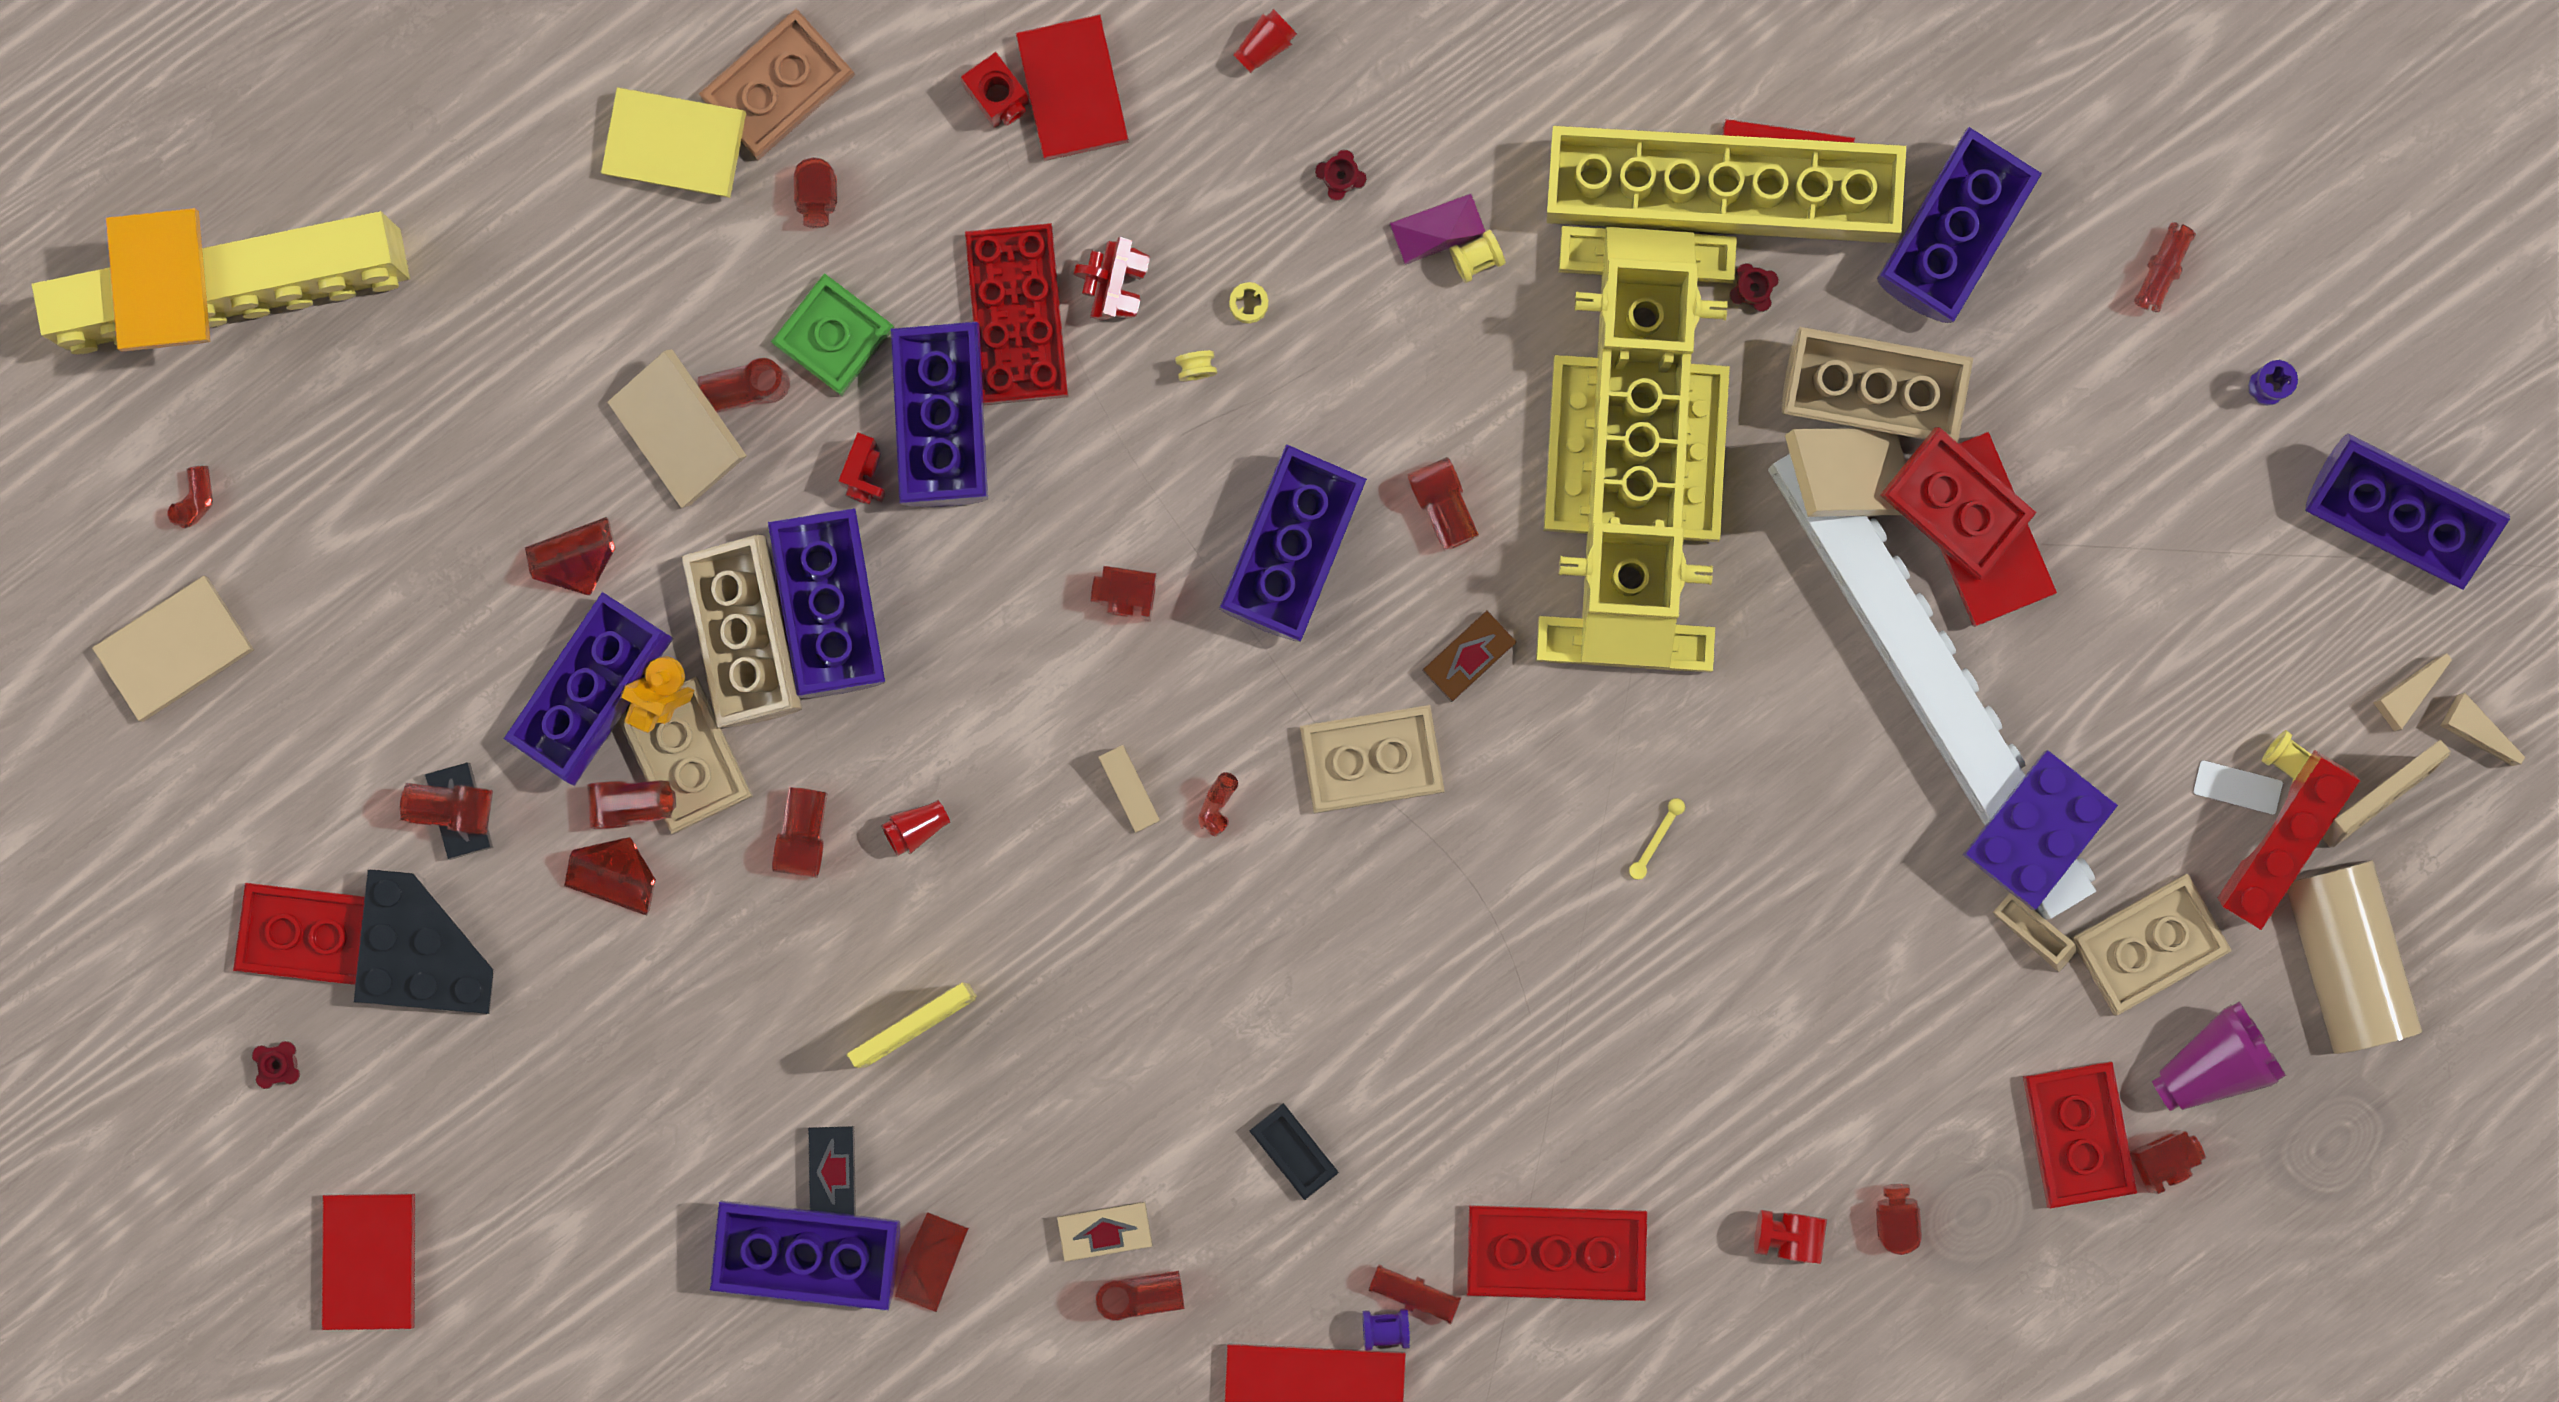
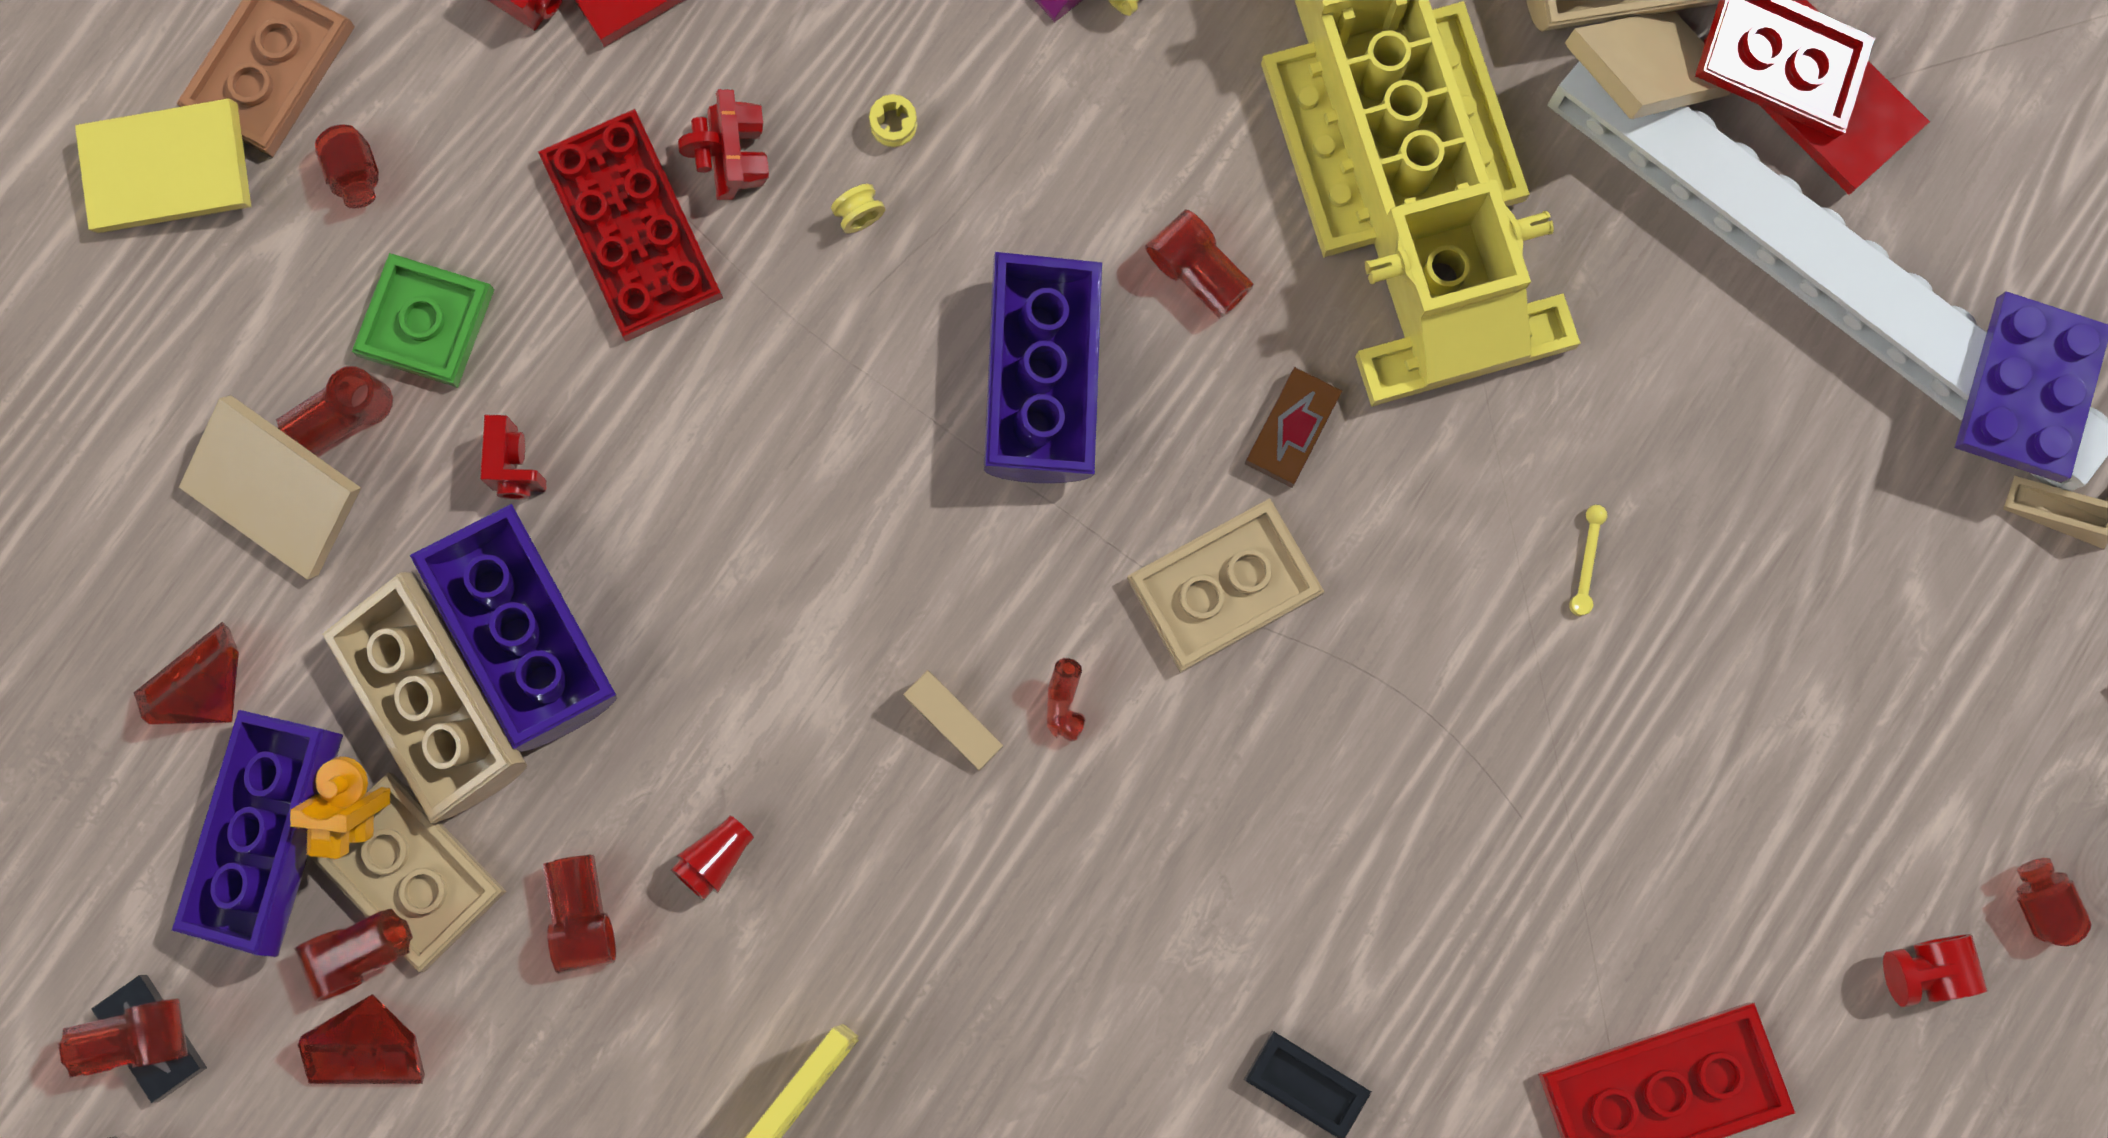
camera: 20 degrees left, 5 degrees down
(939, 415) = (577, 364): dark purple brick -> none
(1125, 591) = (866, 491): clear red brick -> none

